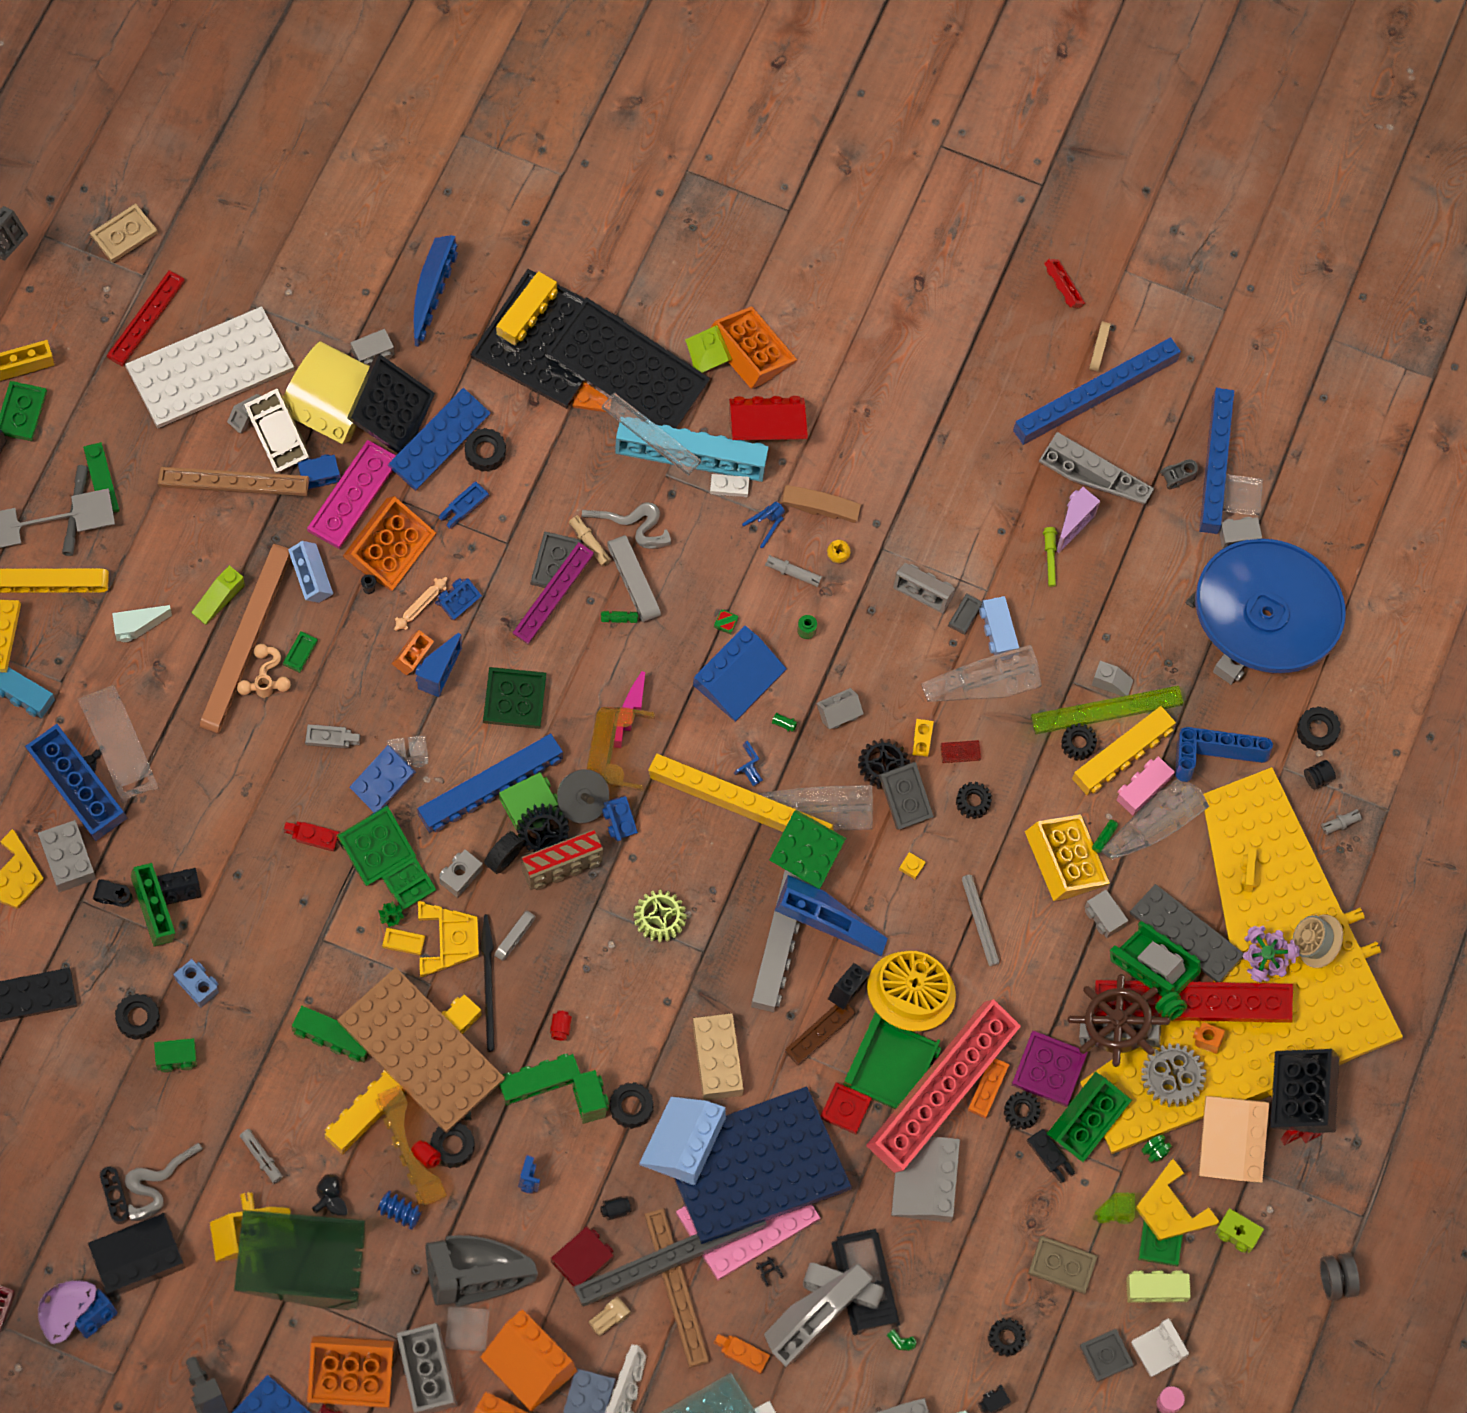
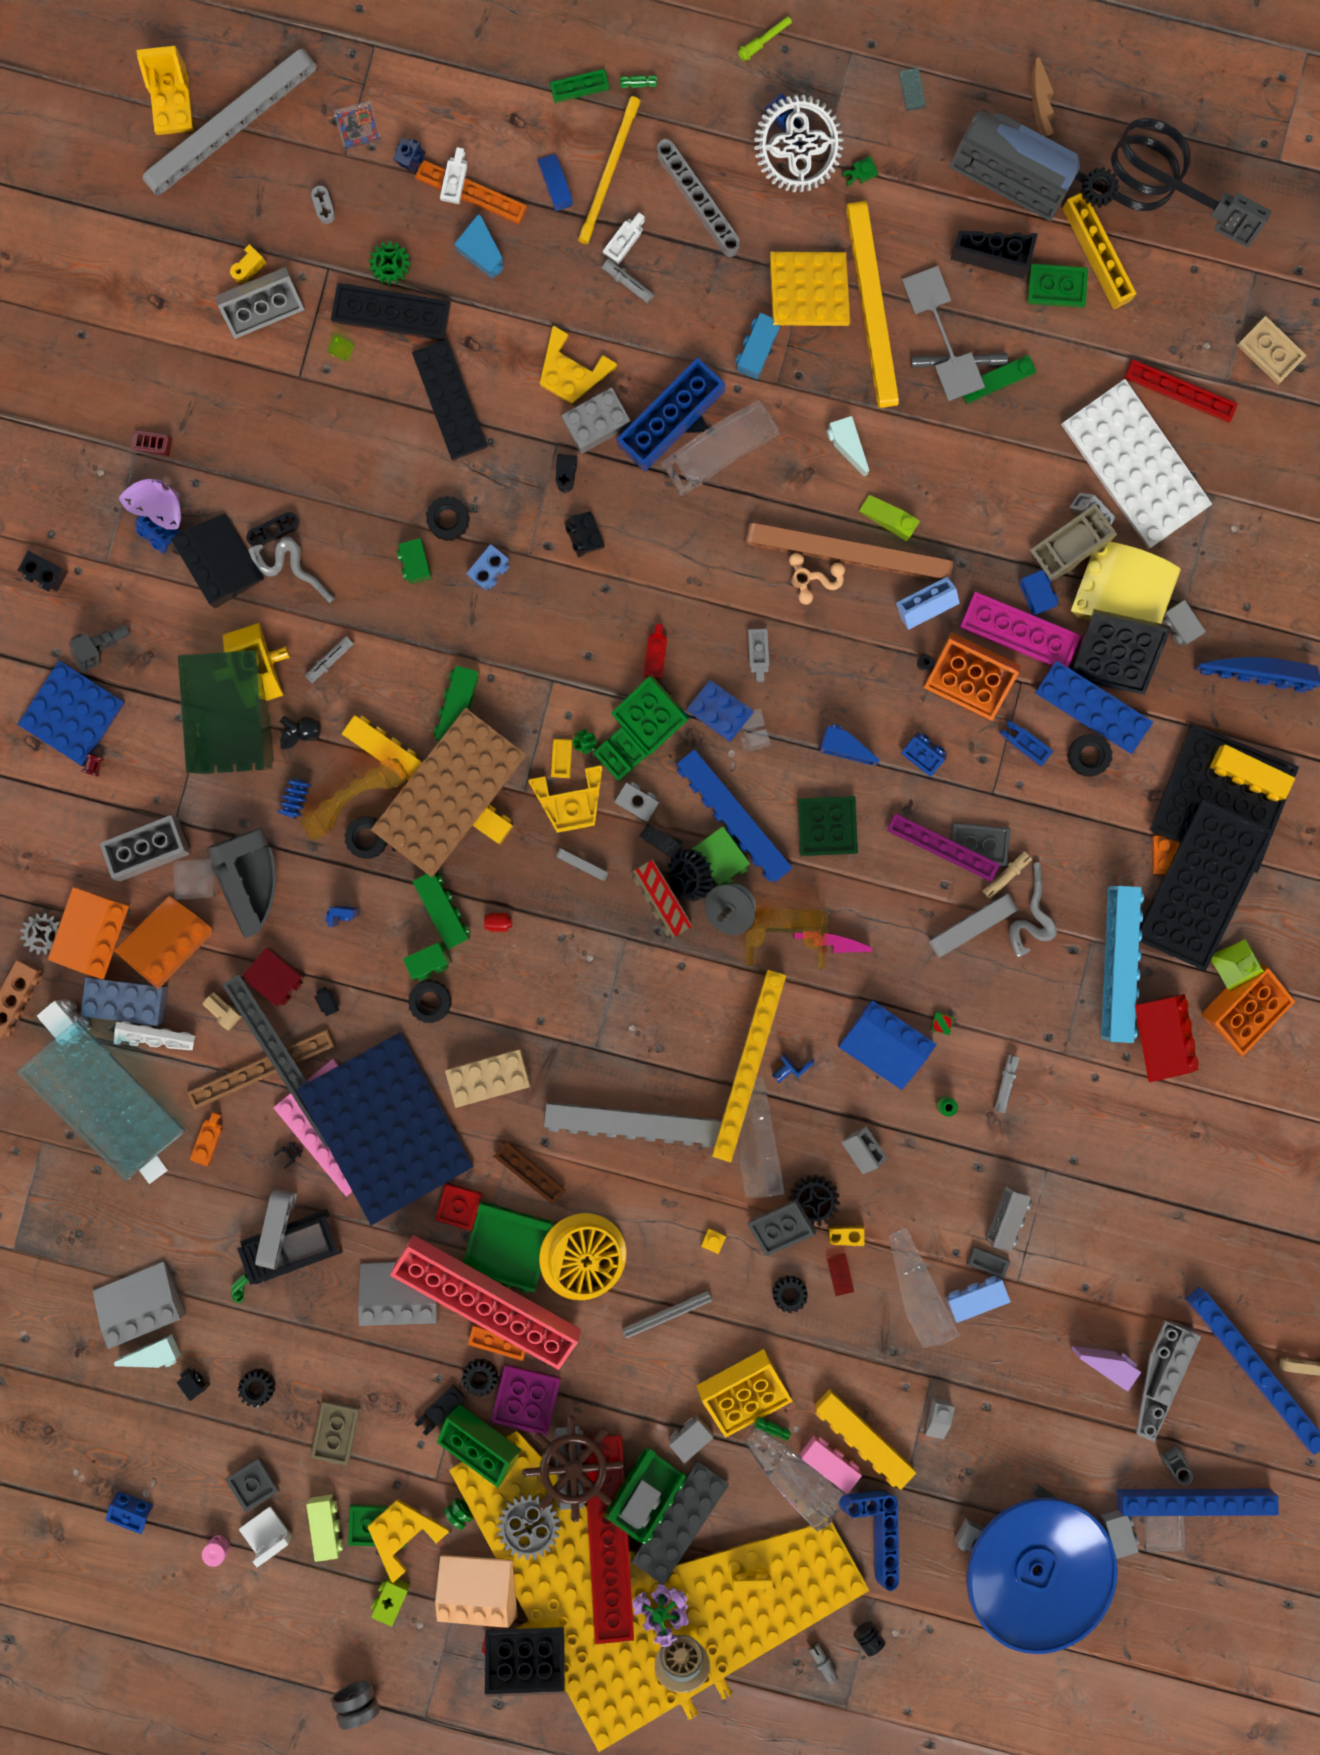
camera: 85 degrees right, 20 degrees up
(152, 904) = (558, 511): green brick -> none
(233, 481) = (1013, 510): medium nougat tile -> none
(300, 652) = (844, 608): green tile -> none
(350, 1371) = (137, 777): orange slope -> none
(412, 652) = (857, 718): orange brick -> none
(420, 603) = (913, 718): light nougat wheel -> none
(426, 1154) = (347, 814): red brick -> none
(487, 947) = (567, 839): black piece -> none
(619, 616) = (930, 916): green axle -> none
(619, 818) = (717, 948): blue bracket -> none
(651, 434) = (1127, 921): clear tile -> none
(667, 914) = (607, 1009): yellowish green gear -> none
(684, 1138) = (399, 1056): light blue slope -> none
(729, 485) = (1091, 1006): white plate -> none
(772, 512) = (1067, 1055): blue plant -> none
(784, 722) = (843, 1096): green pin -> none
(807, 849) = (703, 1140): green plate -> none
(813, 1314) = (239, 1205): light grey wedge -> none
(820, 502) = (1084, 1101): medium nougat slope -> none
(828, 915) = (646, 1163): blue wedge -> none
(835, 546) = (1038, 1133): yellow piece -> none
(848, 986) = (575, 1196): black brick -> none
(1050, 546) = (1074, 1340): lime pin -> none
(1079, 731) = (876, 1400): black tyre -> none
(1106, 709) = (906, 1417): clear neon green plate -> none
(1118, 1208) = (396, 1480): clear neon green slope -> none
(1171, 1006) = (594, 1519): green wheel -> none
(1209, 1045) = (567, 1566): orange brick -> none
(1328, 718) = (924, 1647): black tyre -> none

